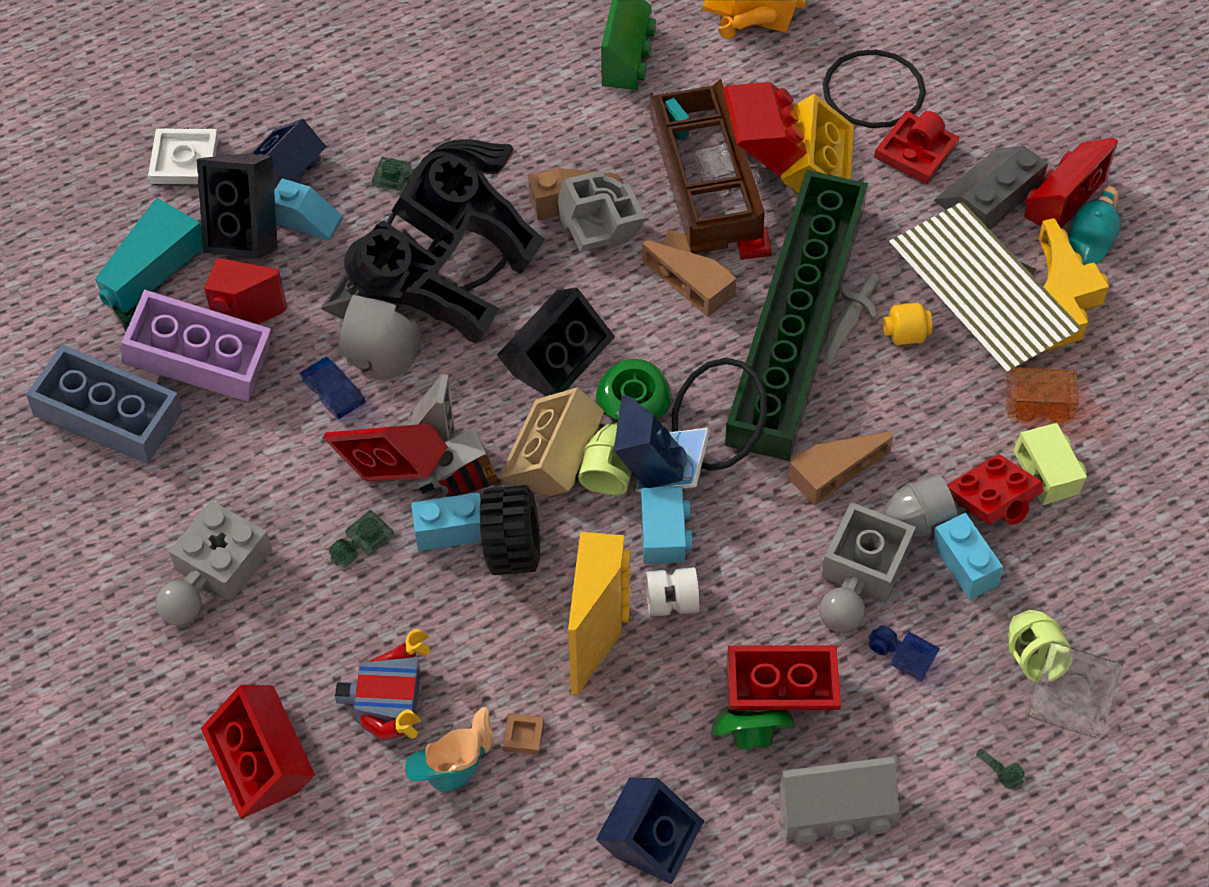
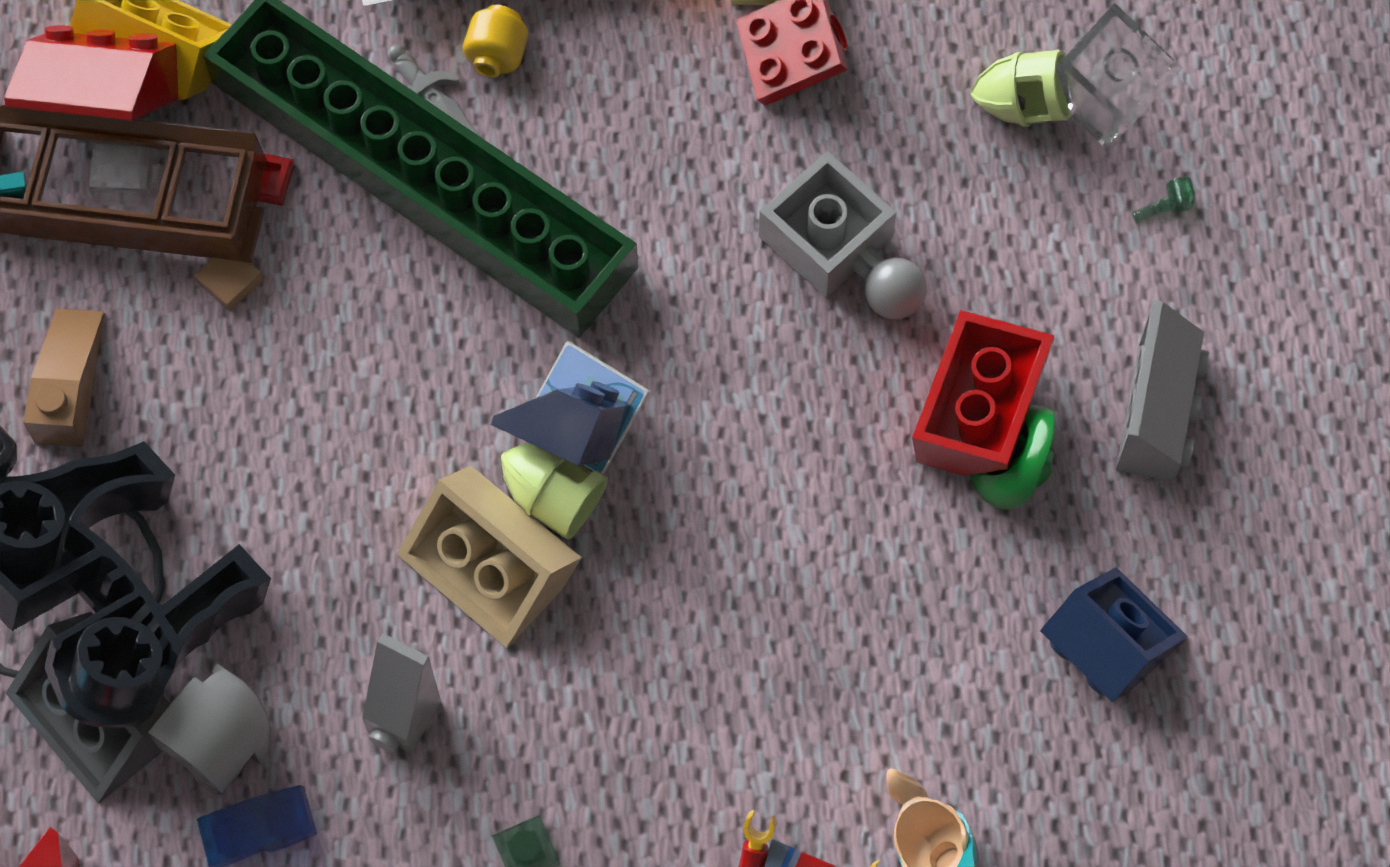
camera: 70 degrees left, 10 degrees up
(389, 451) = (431, 767): red slope -> none
(447, 521) = (562, 732): medium azure brick -> none
(462, 467) = (481, 667): torso -> none
(509, 530) = (626, 649): black tyre -> none
(523, 734) = (918, 745): medium nougat tile -> none
(556, 343) = (322, 492): black slope -> none
(597, 603) = (813, 575): yellow slope -> none
(598, 211) = (133, 350): light grey brick -> none
(640, 381) = (449, 419): green hat -> none
(663, 525) = (680, 456): medium azure brick -> none
(685, 592) = (790, 476): white wheel -> none
(692, 275) = (295, 271): medium nougat slope -> none
(763, 408) = (526, 247): black piece -> none
(835, 463) = (674, 222): medium nougat slope -> none
(911, 655) = (981, 234): clear blue plate -> none
(922, 504) = (785, 134): light grey helmet -> none
(967, 556) = (875, 114): medium azure brick -> none

